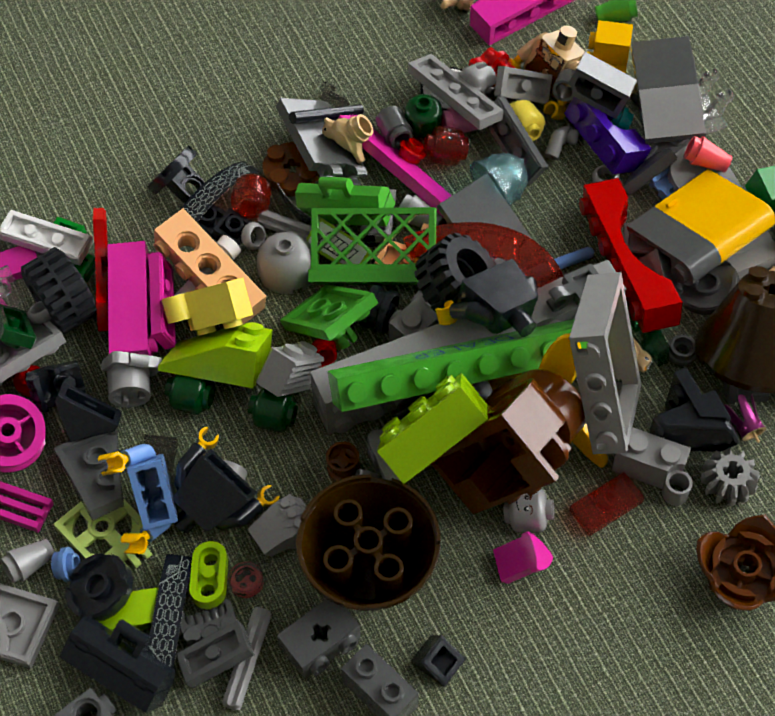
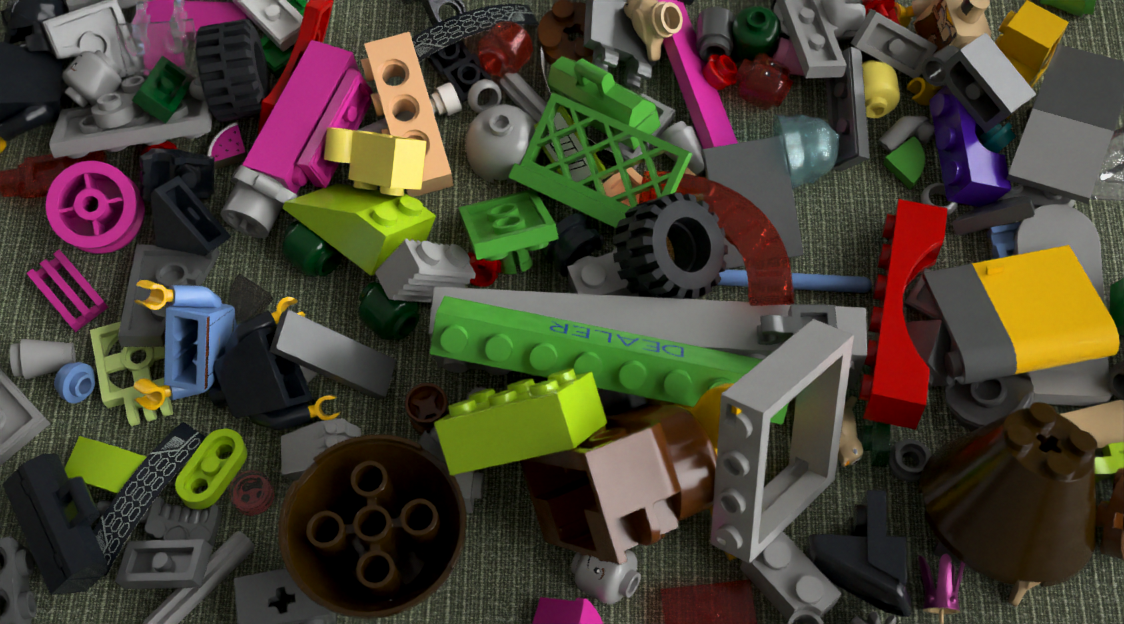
camera: 30 degrees right, 5 degrees up
(79, 349) = (227, 146): none -> dark pink tile
(99, 587) = (88, 426): black tile -> none
(256, 454) = (332, 355): none -> dark grey tile
(495, 299) = (689, 299): black torso -> none
(571, 161) = (907, 162): none -> bright green tile
(706, 154) = (1076, 227): coral cone -> none

